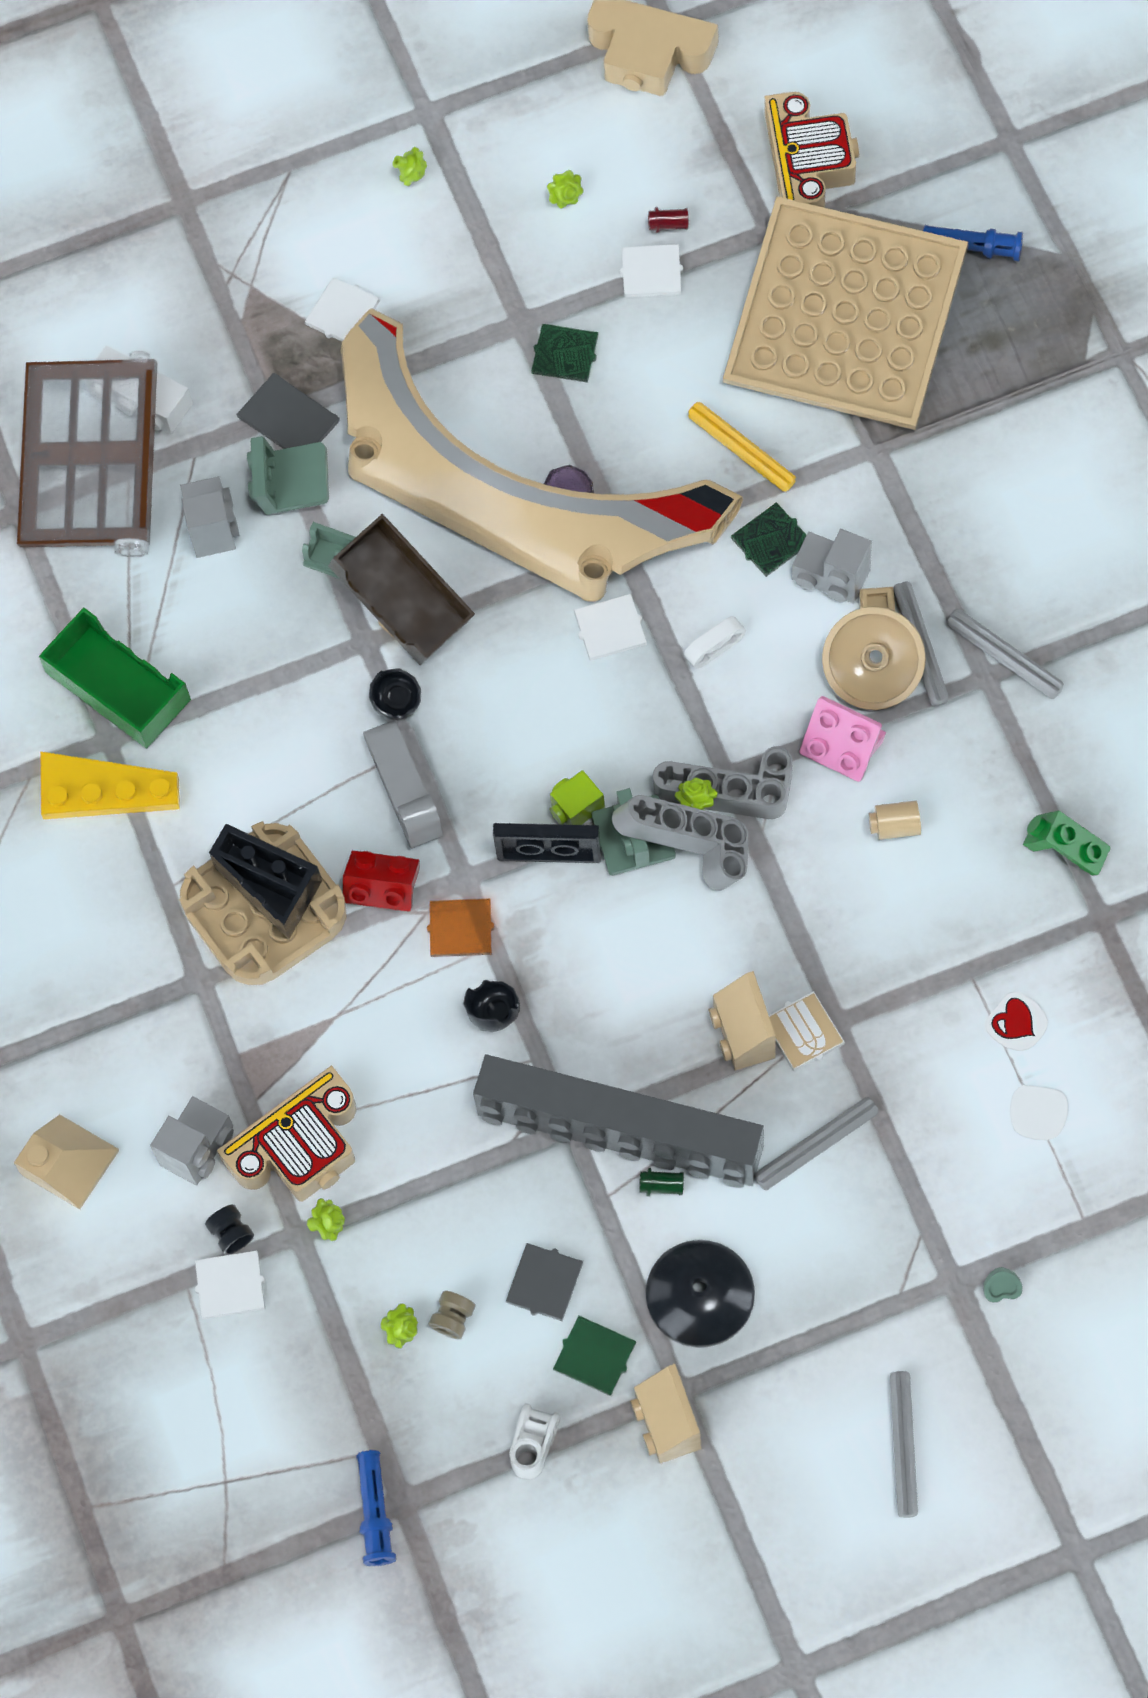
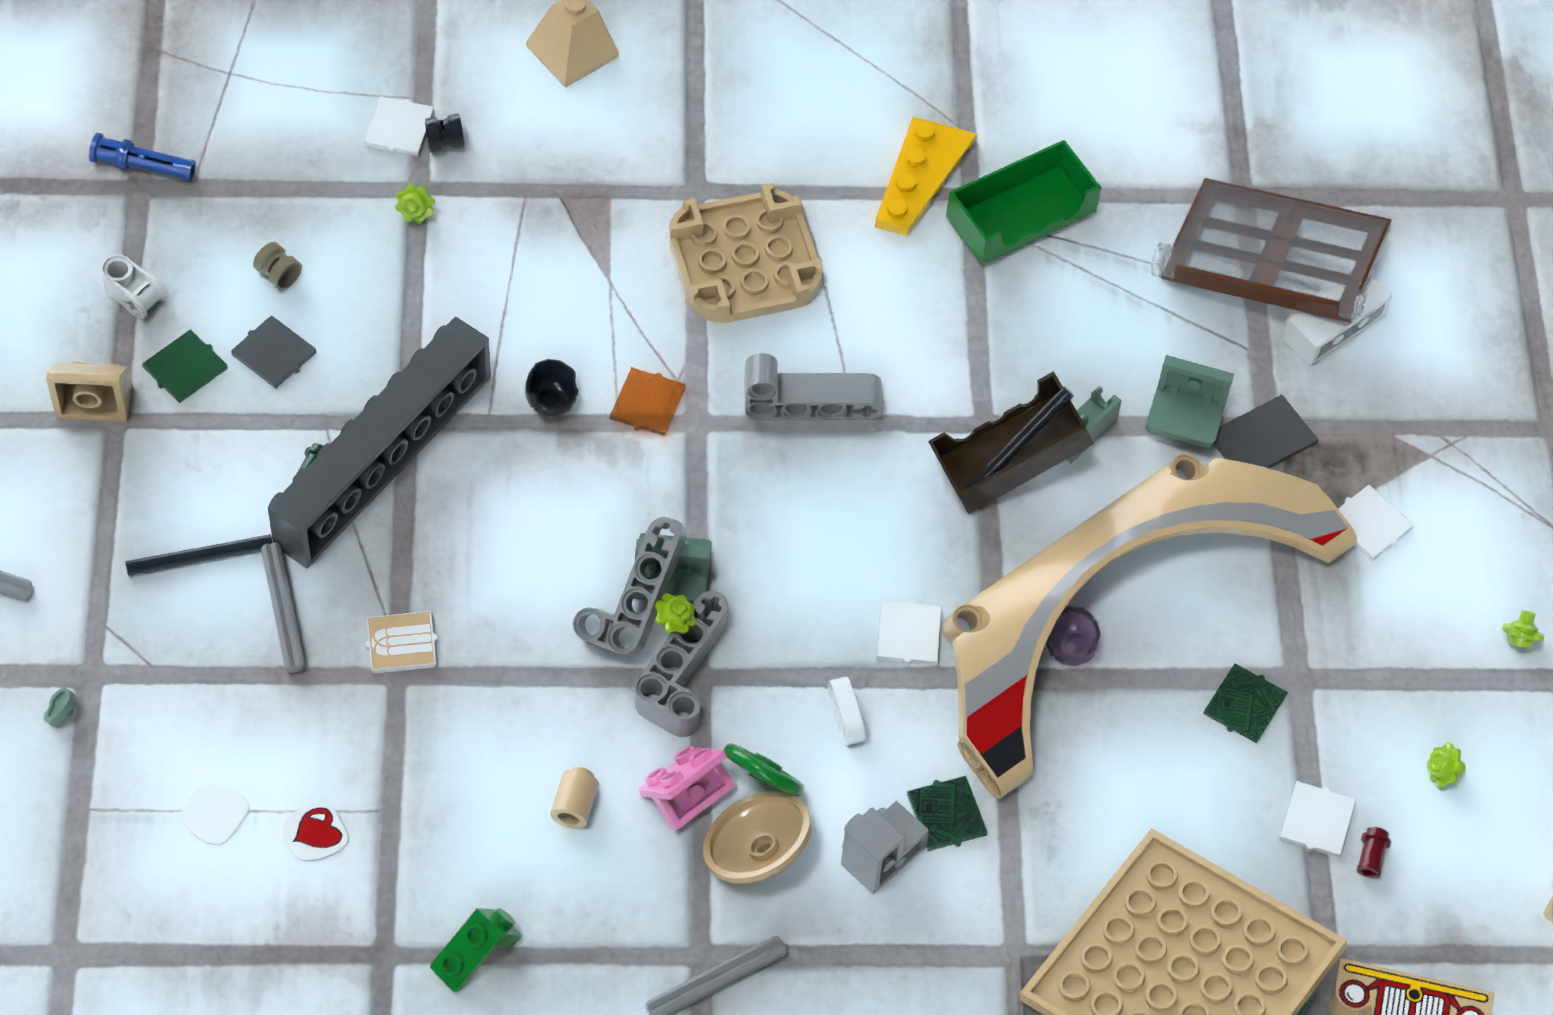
camera: 100 degrees right, 10 degrees down
(192, 1141) = (535, 125): light grey brick -> none
(209, 516) = (1168, 327): light grey brick -> none
(266, 876) = (758, 247): black wedge -> none
(297, 1139) = (500, 206): brick -> none
(380, 880) = (725, 348): red bracket -> none
(395, 694) = (908, 415): black hair -> none
(400, 1325) = (289, 225): lime plant -> none
(405, 576) = (1027, 433): none -> black bar
(547, 843) = (690, 474): black tile -> none
(575, 799) = (728, 529): lime brick -> none
(704, 1316) = (199, 480): black dish -> none
(741, 446) = (1065, 822): yellow axle -> none
(744, 1023) = (425, 584): tan slope -> none
(794, 1243) = (197, 555): none -> black bar
(811, 673) = (764, 769): none -> green plate
(877, 597) = (826, 881): tan tile -> none
(932, 676) = (764, 902): light grey axle -> none

